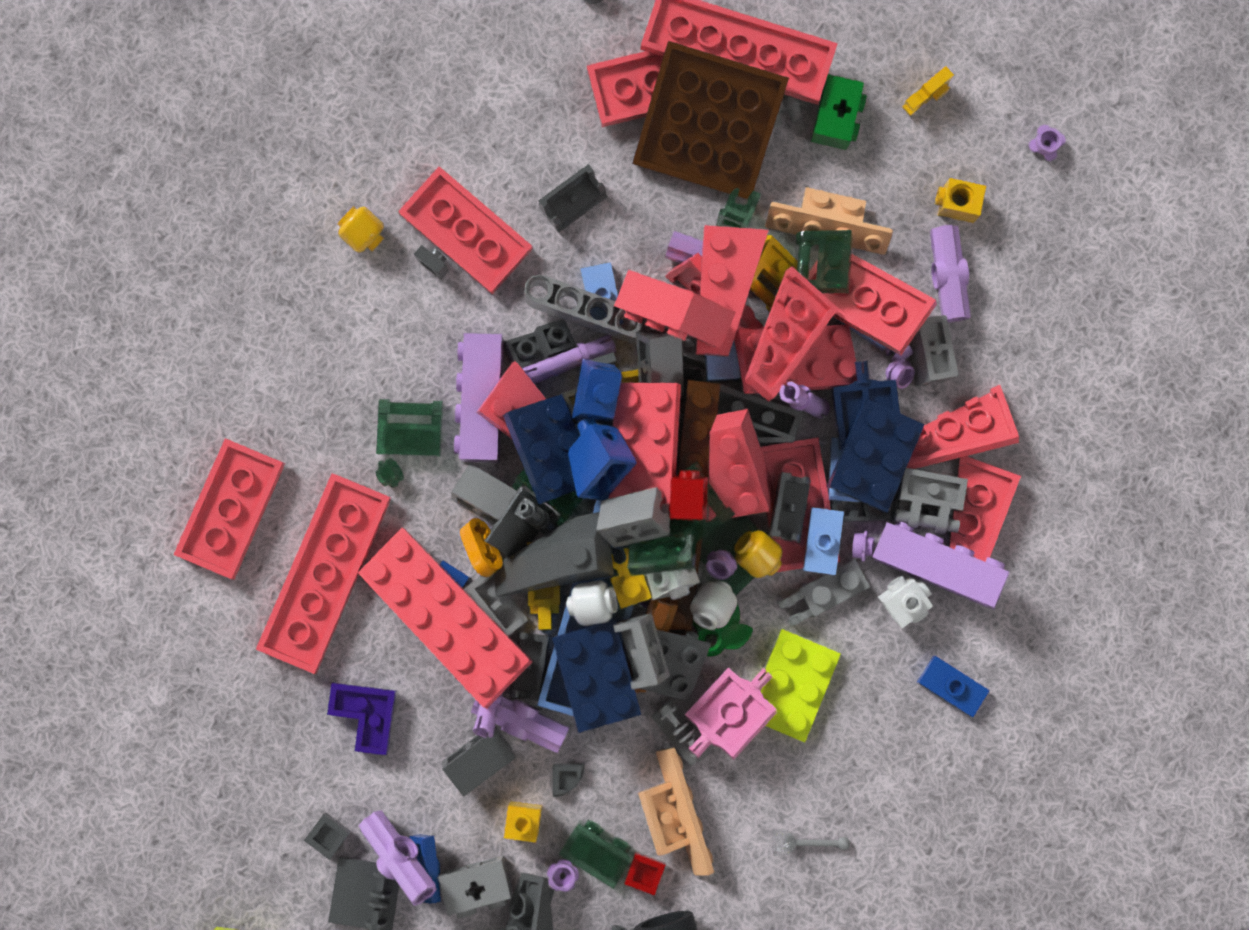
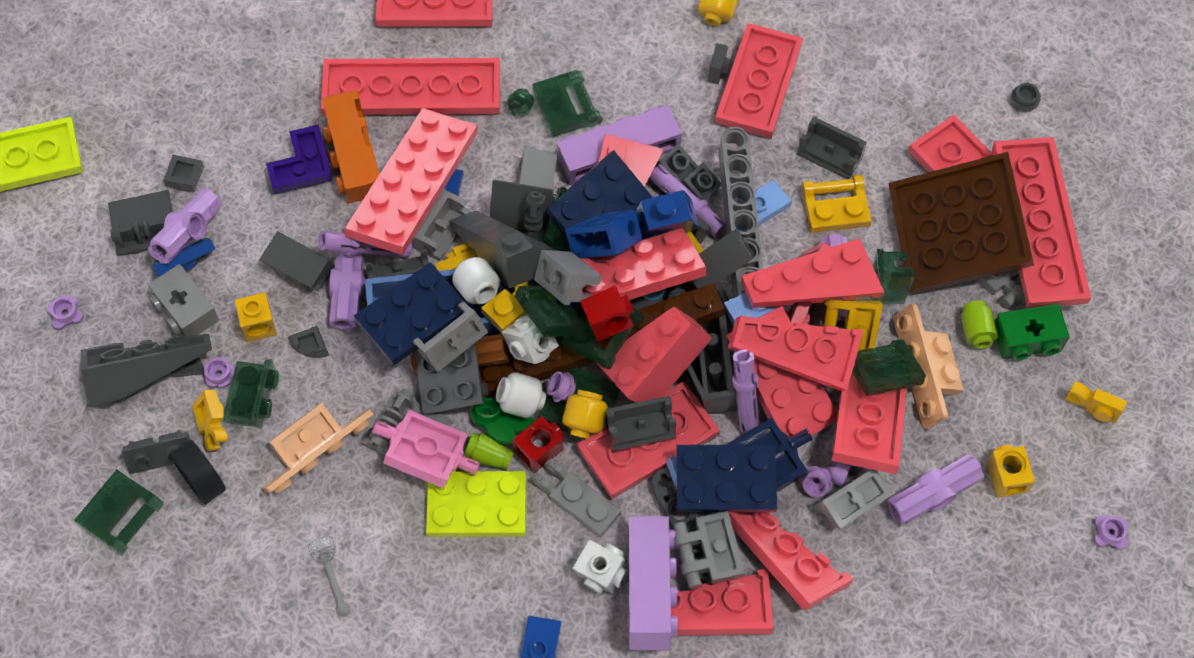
camera: 65 degrees right, 20 degrees down
(377, 661) = (351, 145): none -> orange wedge
(482, 555) = (471, 198): light orange beam -> none
(606, 900) = (208, 415): none -> yellow plate
(639, 224) = (837, 212): none -> yellow plate
(645, 873) = (246, 439): red plate -> none
(673, 308) = (770, 241): coral wedge -> none
(749, 657) = (488, 452): none -> lime cone
(772, 616) = (535, 456): none -> red brick
(810, 155) = (978, 324): none -> lime brick
(823, 541) = (624, 469): light blue plate -> none
(862, 545) = (636, 507): lavender plate -> none

